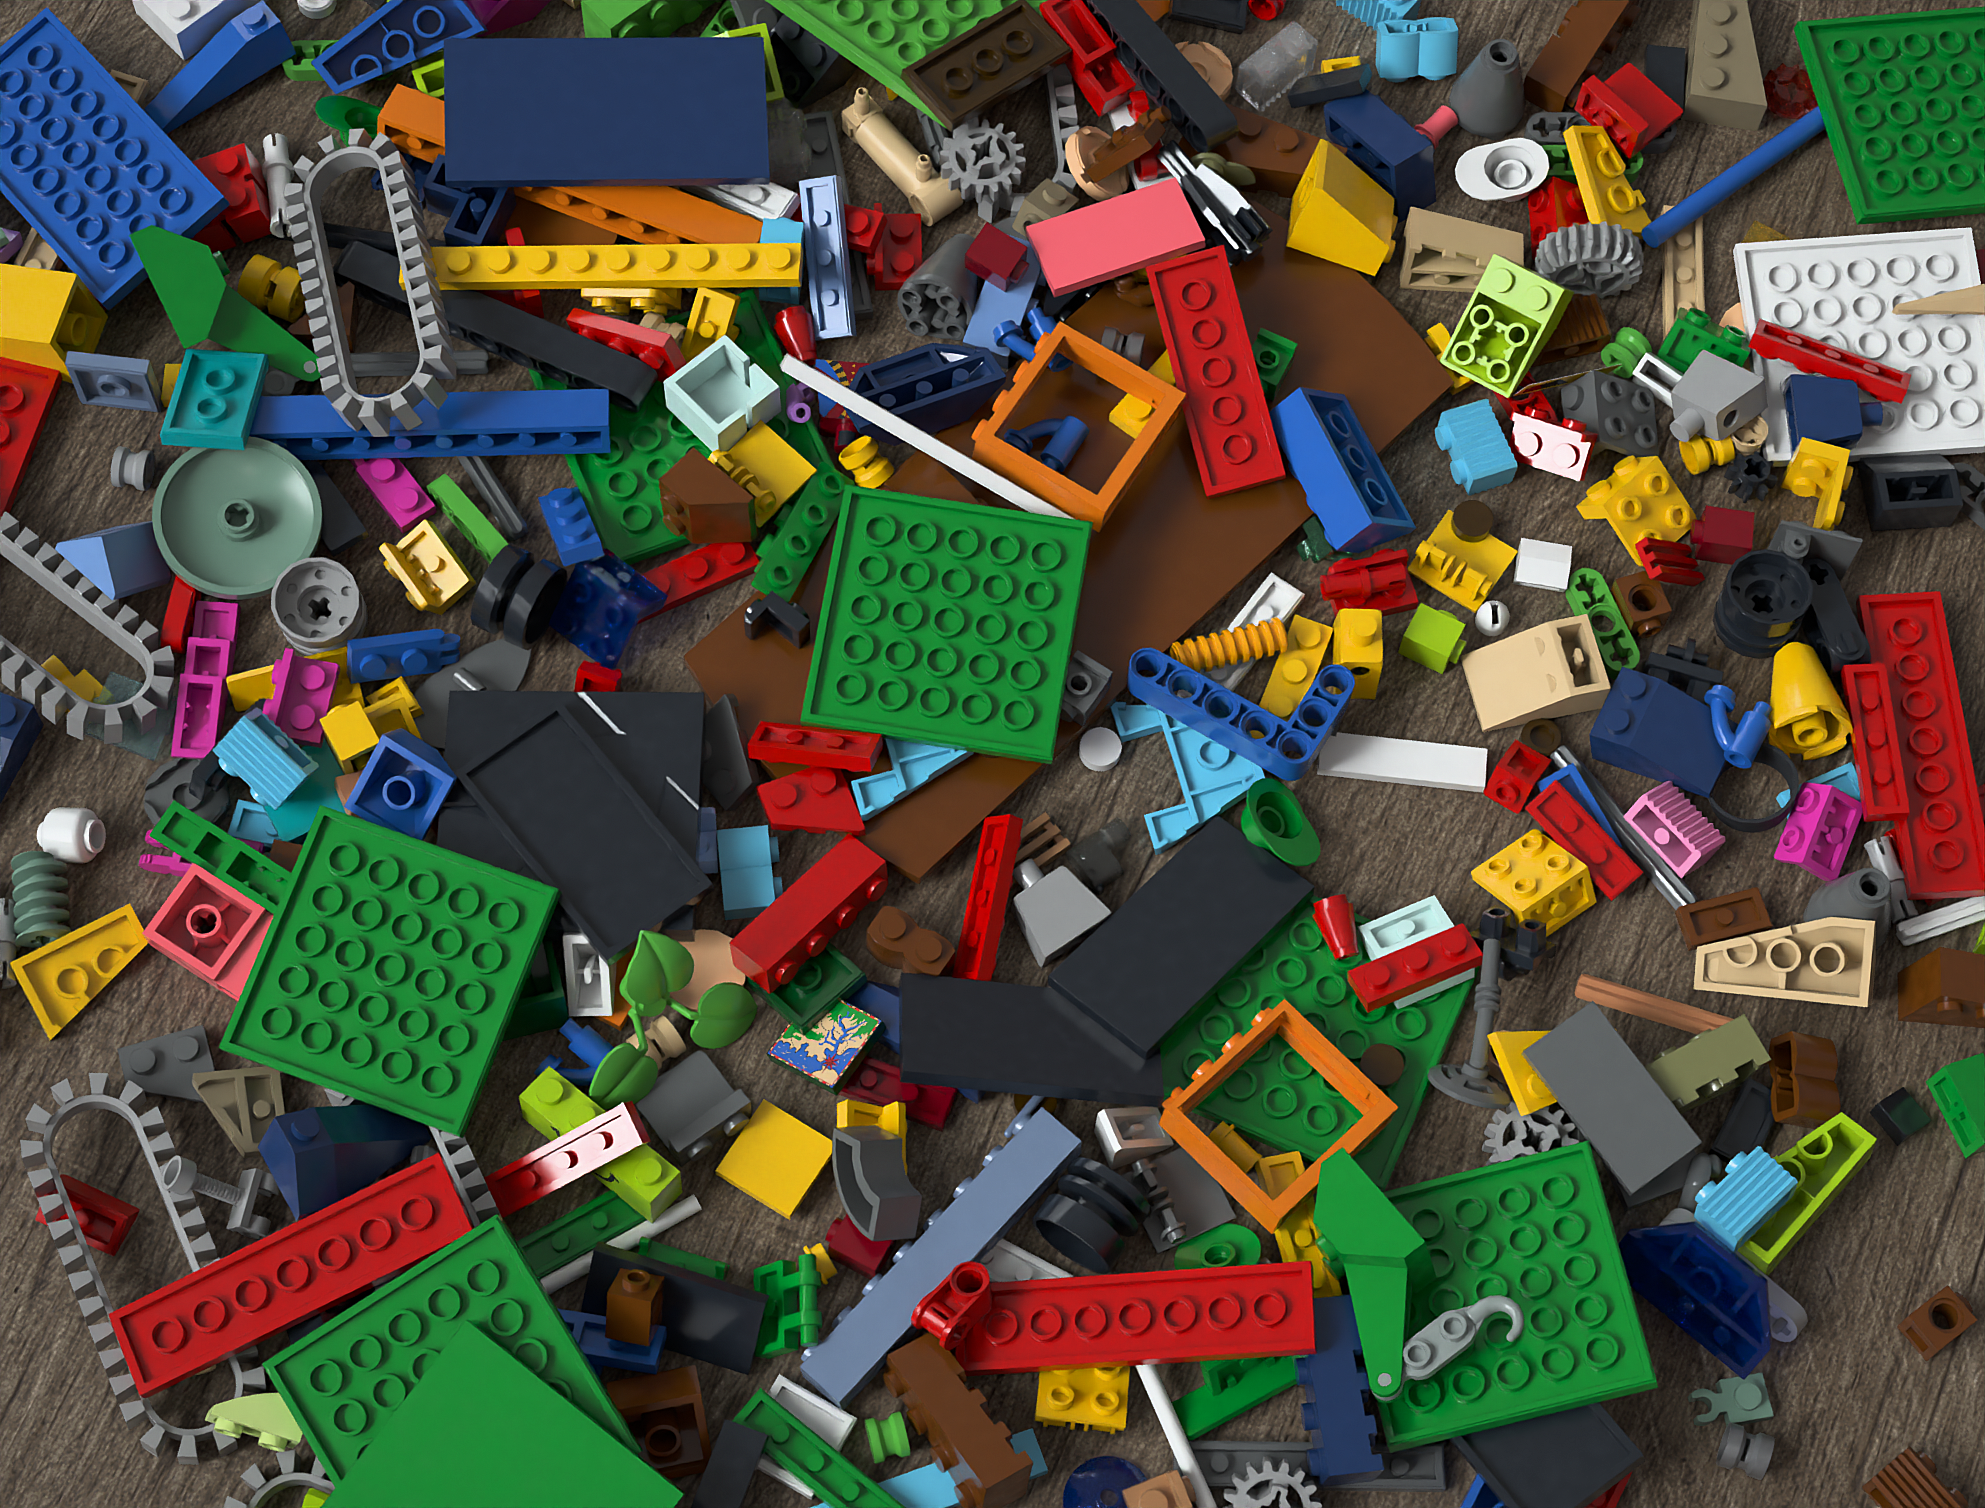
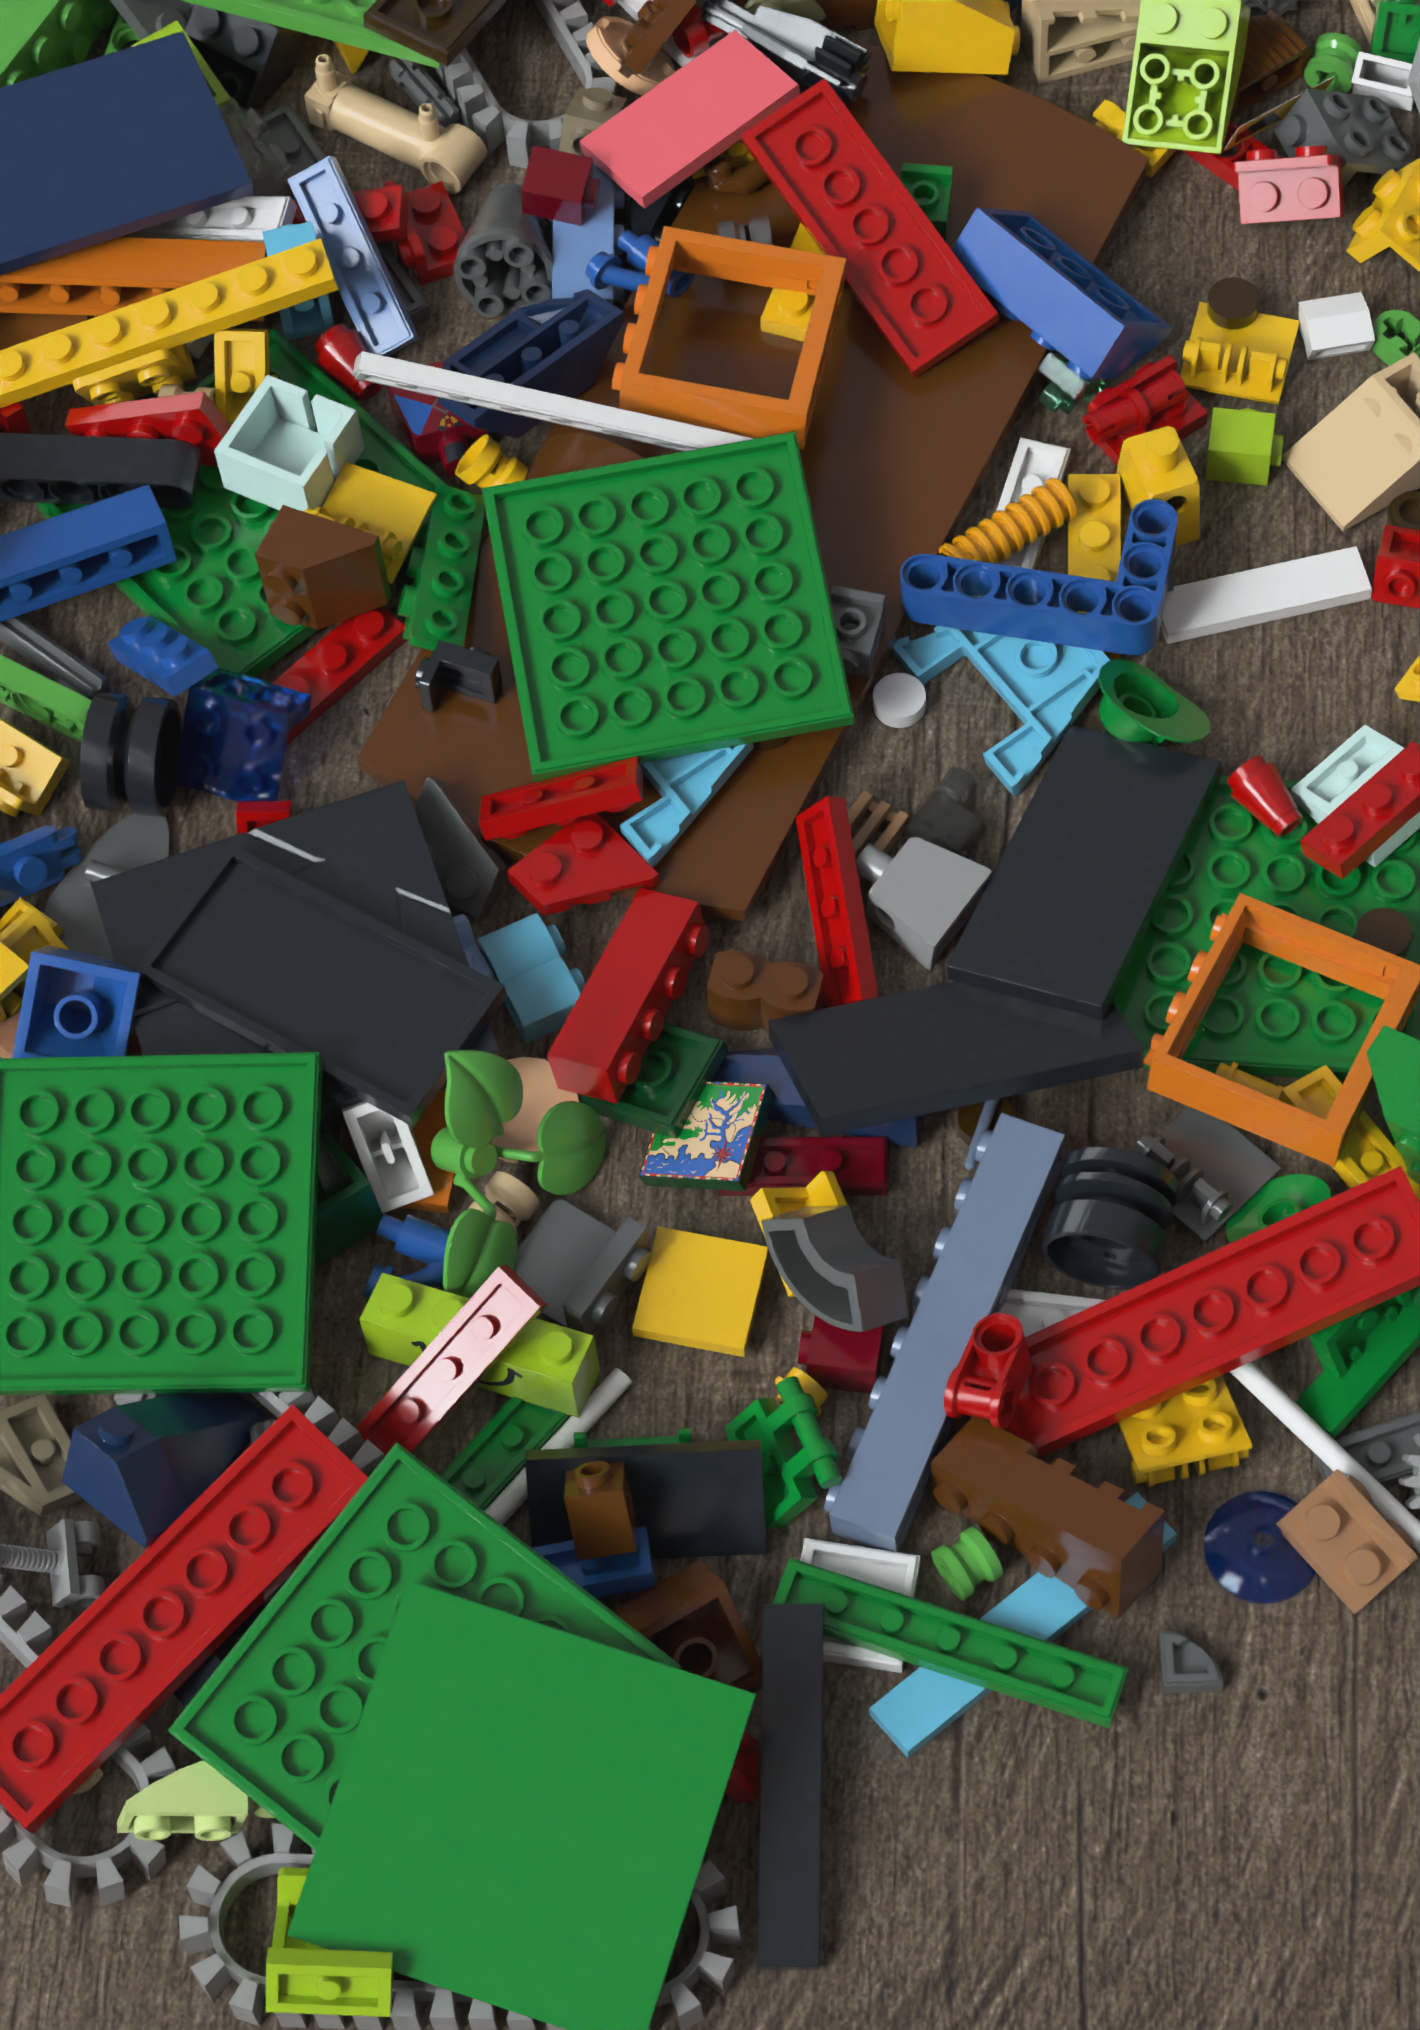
camera: 10 degrees left, 5 degrees down
(795, 402) = (383, 429): medium lavender arm -> none
(982, 161) = (495, 92): light grey gear -> none
(1067, 438) = (719, 359): blue plant -> none
(1130, 1134) = (1115, 1114): white slope -> none
(1476, 447) = (1204, 222): medium azure brick -> none
(1484, 618) = (1292, 406): white hinge -> none

